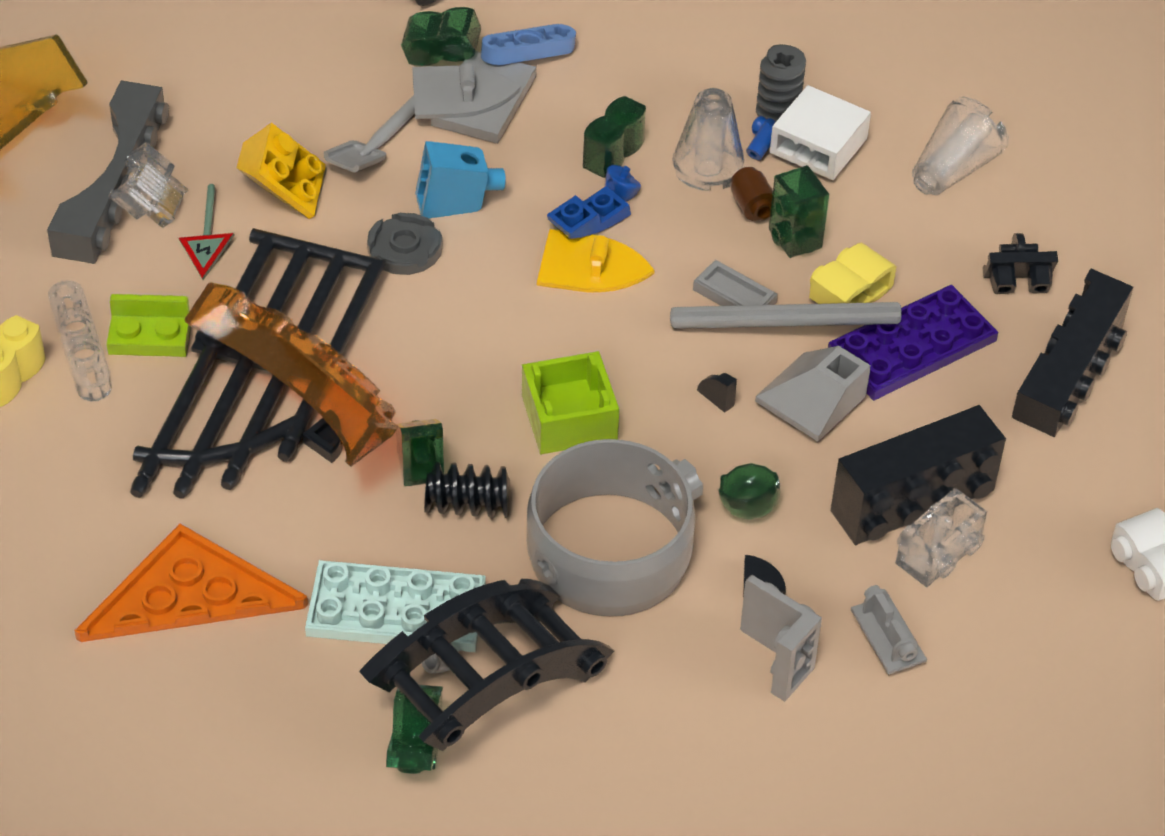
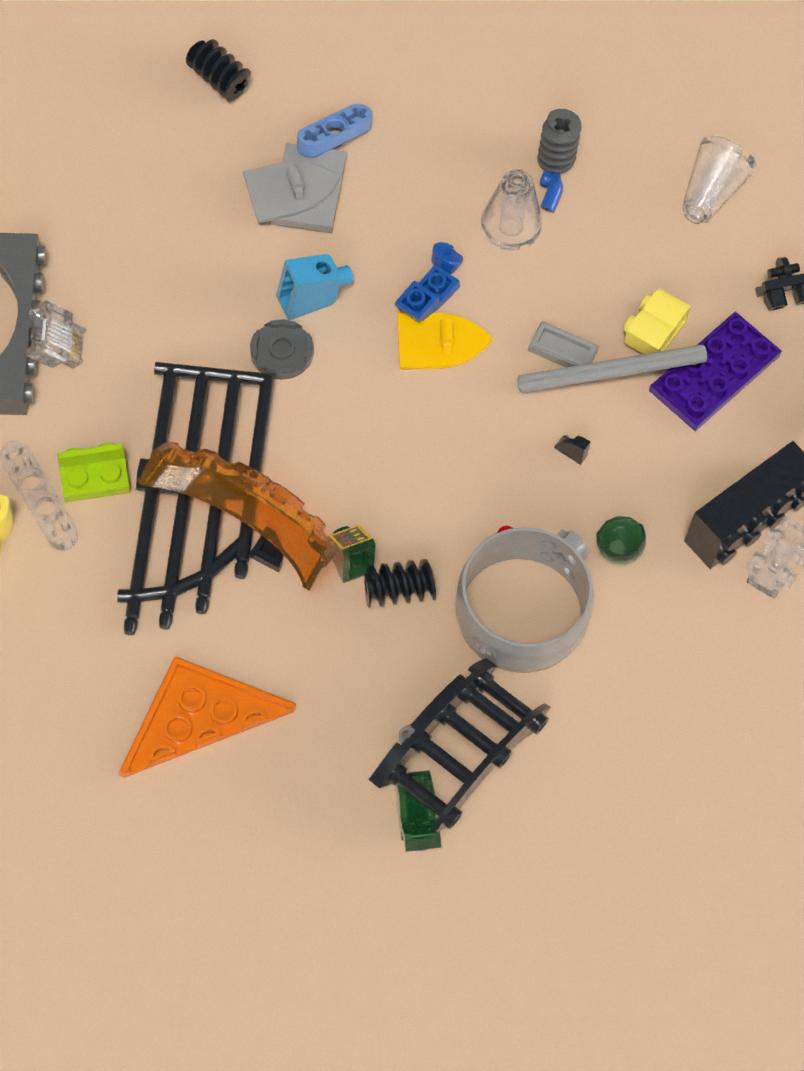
camera: 15 degrees left, 15 degrees up
(207, 248) = (117, 383): piece -> none
(283, 168) = (161, 296): yellow slope -> none
(357, 155) = (221, 269): light grey piece -> none
(381, 601) = (364, 695): light aqua tile -> none
(441, 36) = (259, 136): clear green brick -> none
(569, 401) = (459, 484): lime container -> none
(614, 135) = (431, 214): clear green brick -> none
(752, 193) = (558, 251): reddish brown brick -> none
(764, 571) = (646, 617): black tile -> none
(786, 629) = (681, 665): light grey bracket -> none
(798, 211) = (602, 268): clear green brick -> none
(817, 390) = (651, 435): light grey slope -> none
(820, 132) = (599, 181): white brick -> none
(887, 631) = (754, 647): light grey hinge -> none

